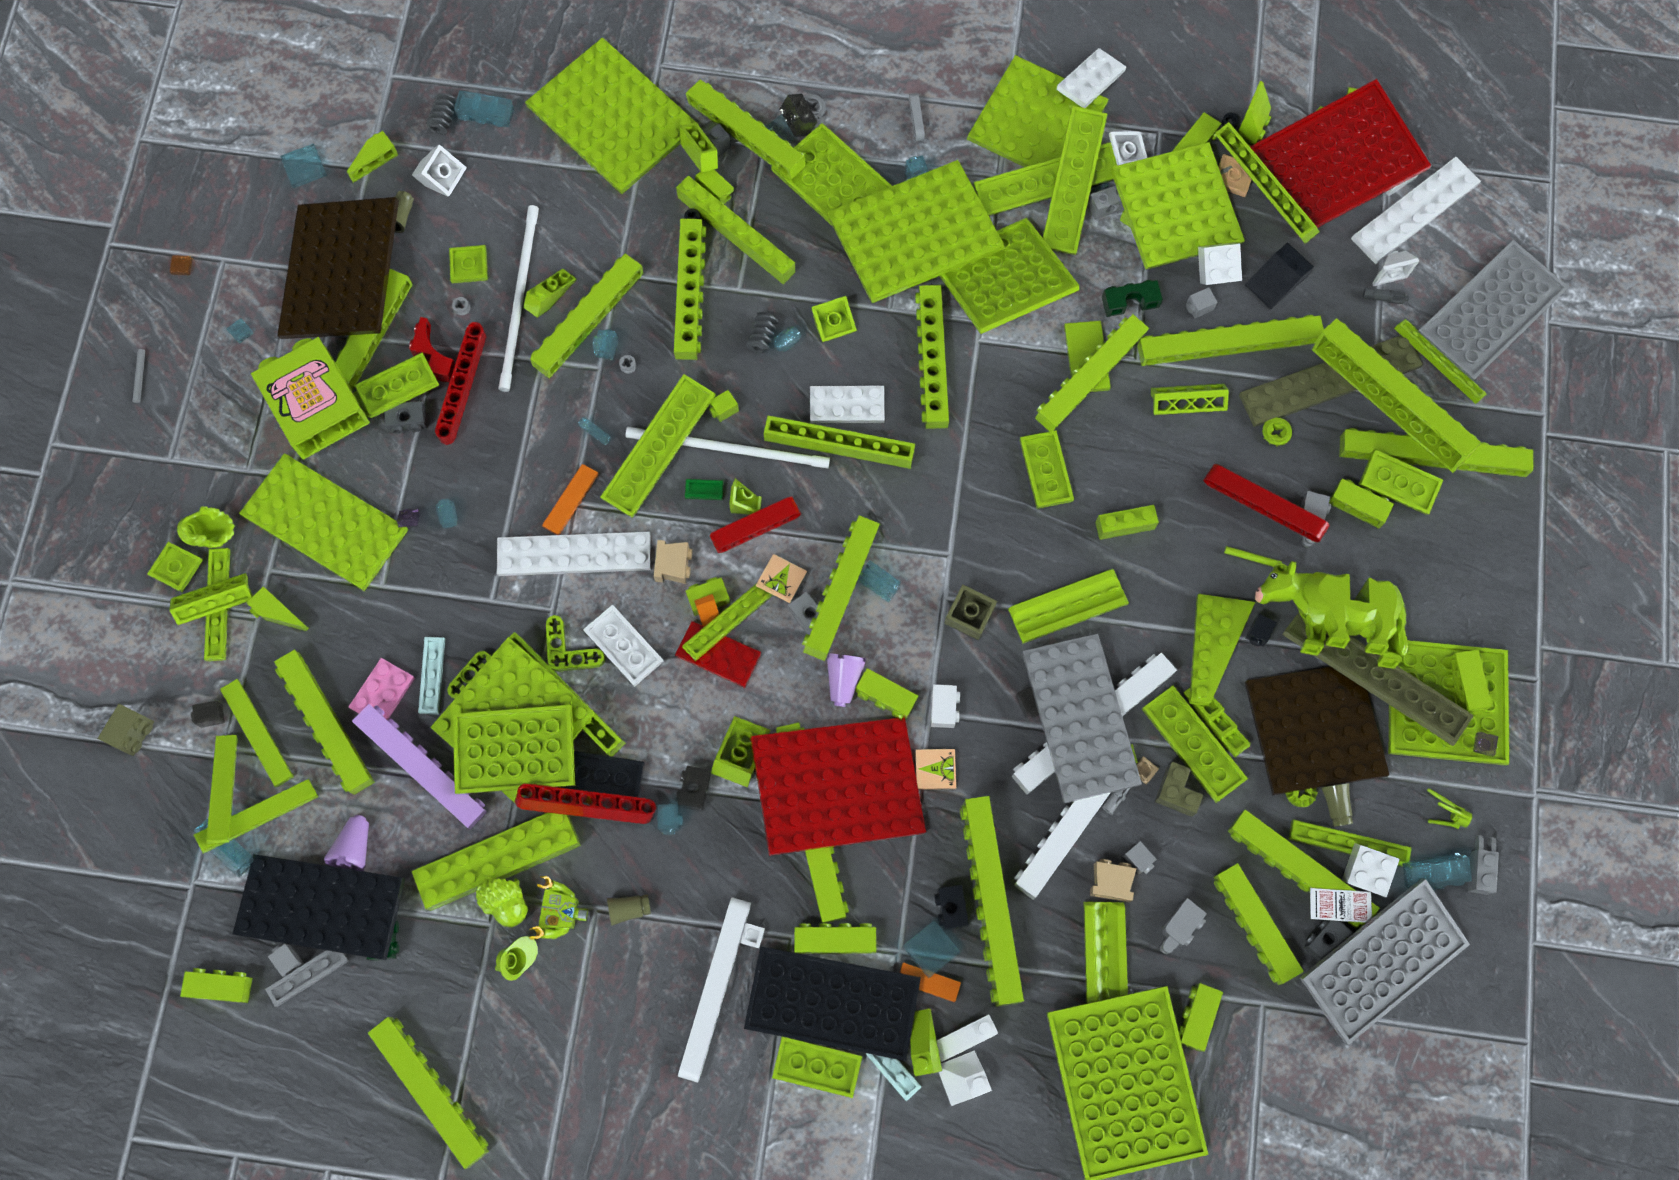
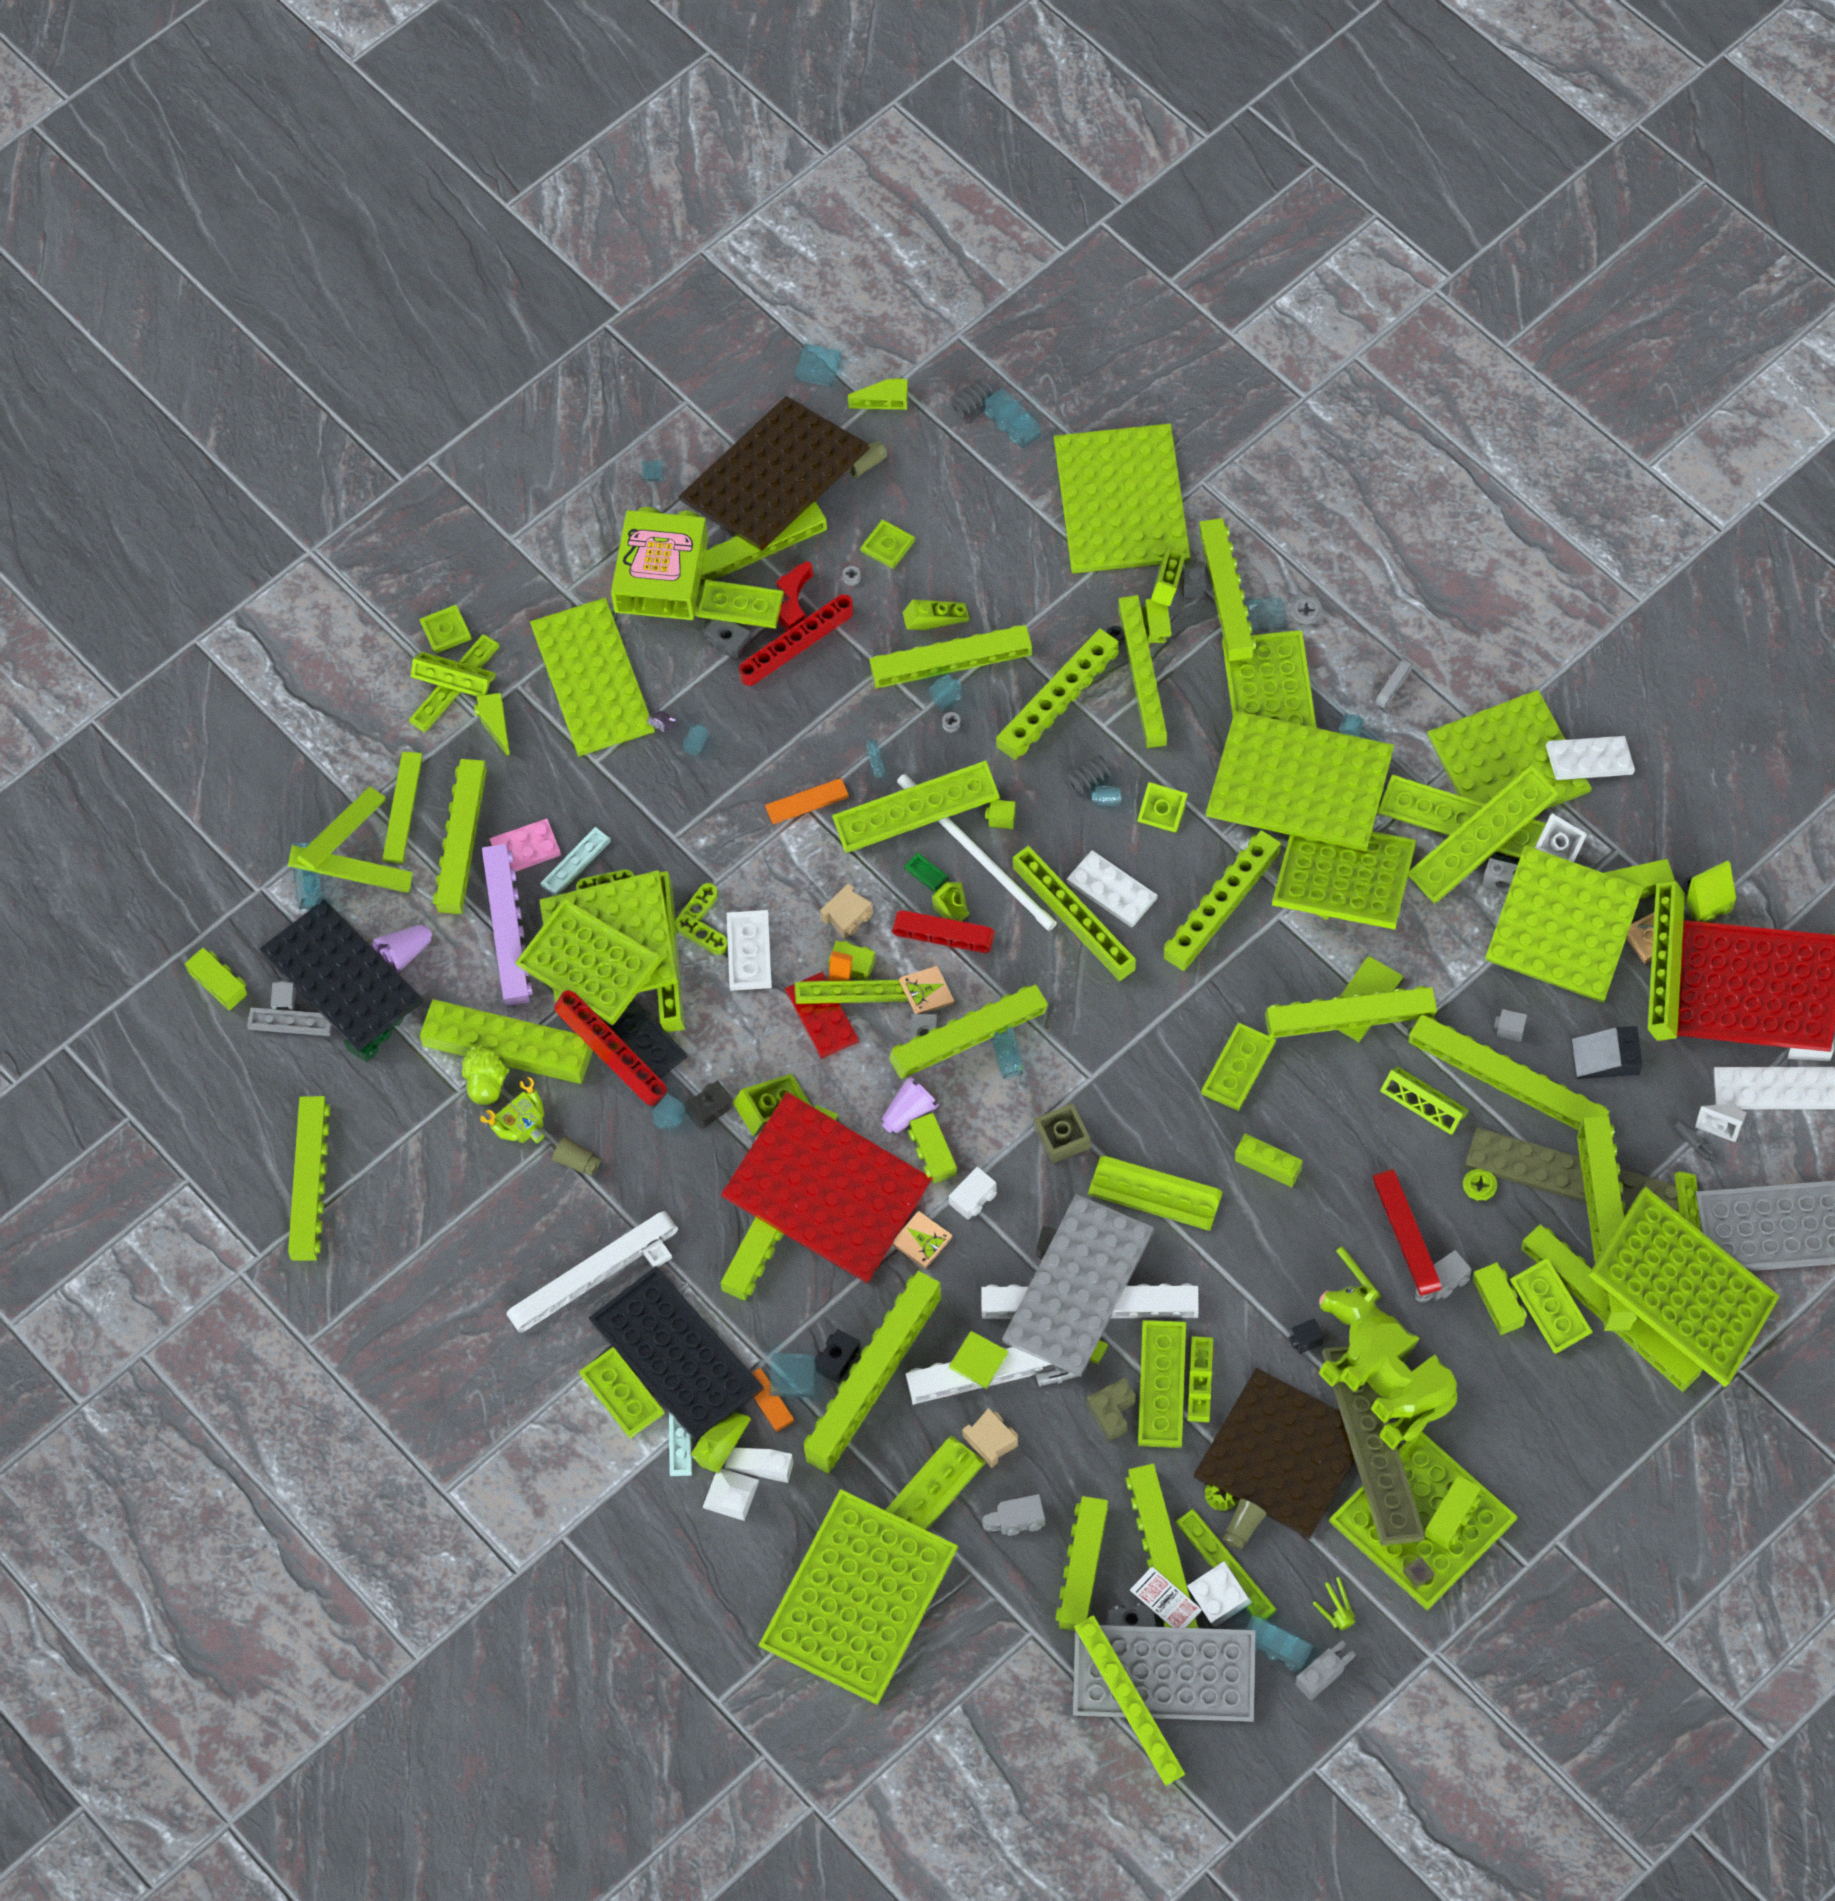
camera: 45 degrees right, 10 degrees down
(126, 730) = (305, 730): olive brick -> none
(138, 376) = (541, 452): light grey bar -> none
(180, 265) = (649, 382): clear orange tile -> none
(206, 528) = (494, 614): lime hair -> none
(207, 714) = (377, 764): clear smoke brick -> none
(439, 171) = (928, 447): white slope -> none
(506, 376) = (840, 660): white piece -> none
(516, 958) = (459, 1129): lime piece -> none
(573, 553) = (772, 847): white plate -> none
(798, 115) = (1283, 608): clear smoke brick -> none
(835, 940) = (720, 1307): lime brick -> none
(1060, 831) = (978, 1359): none -> lime tile
(1140, 858) = (1029, 1436): light grey brick -> none
(1145, 293) = (1435, 966): dark green arch -> none
(1146, 770) = (1100, 1374): tan tile -> none
(1199, 1016) = (966, 1596): lime brick -> none
(1216, 634) = (1260, 1312): lime wing -> none
(1220, 263) = (1556, 1001): white brick -> none
(1386, 1004) = (1129, 1700): none -> lime brick
(1485, 402) = (1684, 1286): none -> lime plate

